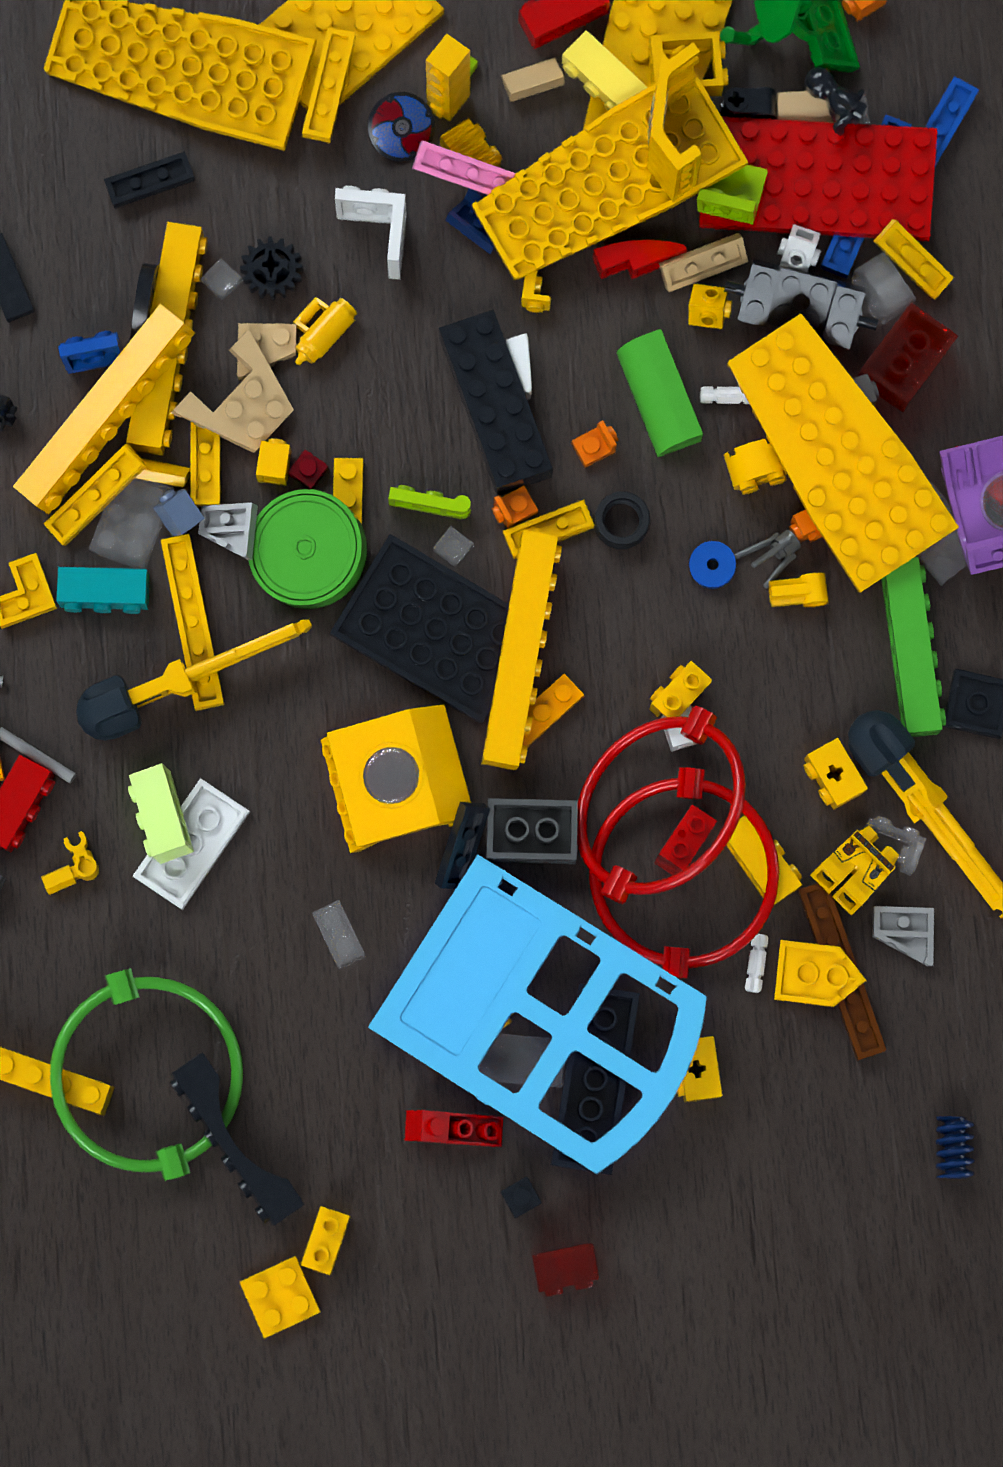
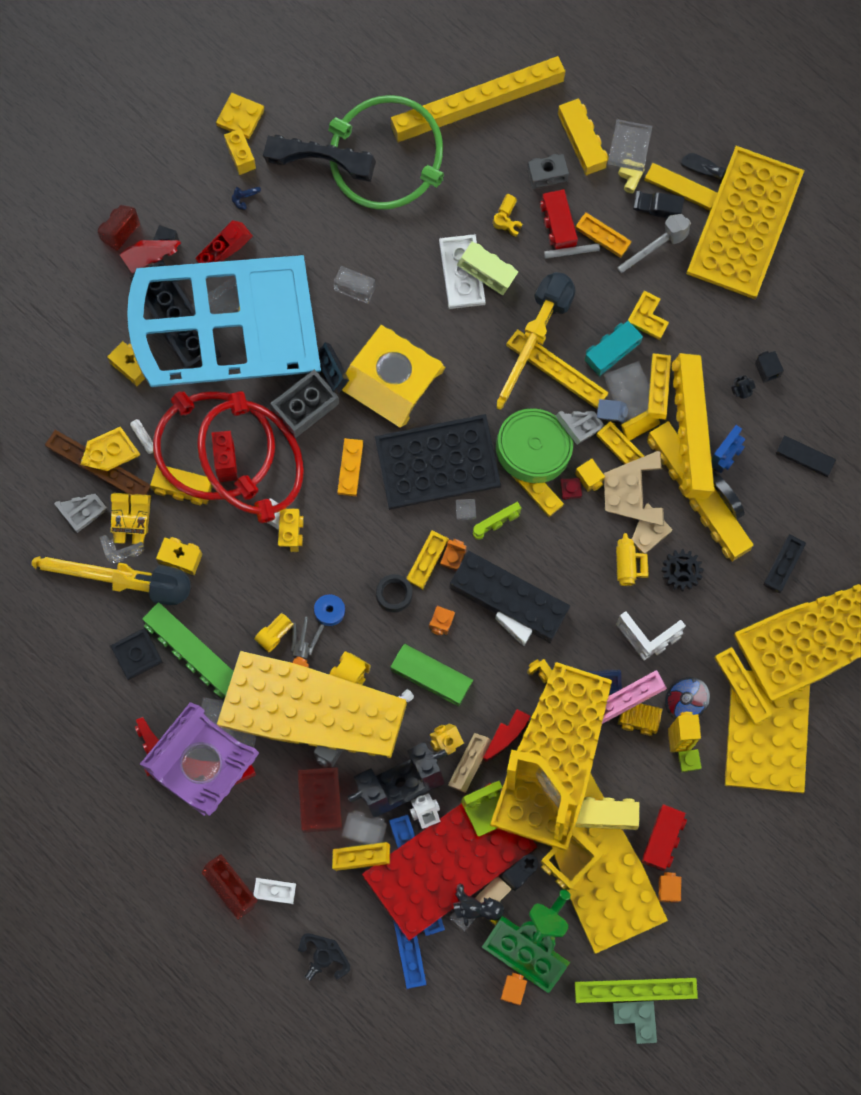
camera: 140 degrees right, 5 degrees down
(221, 279) = (702, 544): clear plate -> none
(375, 1182) = (239, 194): none -> dark blue piece
(520, 650) = (386, 481): yellow brick -> none
(533, 79) = (646, 787): tan slope -> none
(560, 1192) = (148, 251): none -> red slope

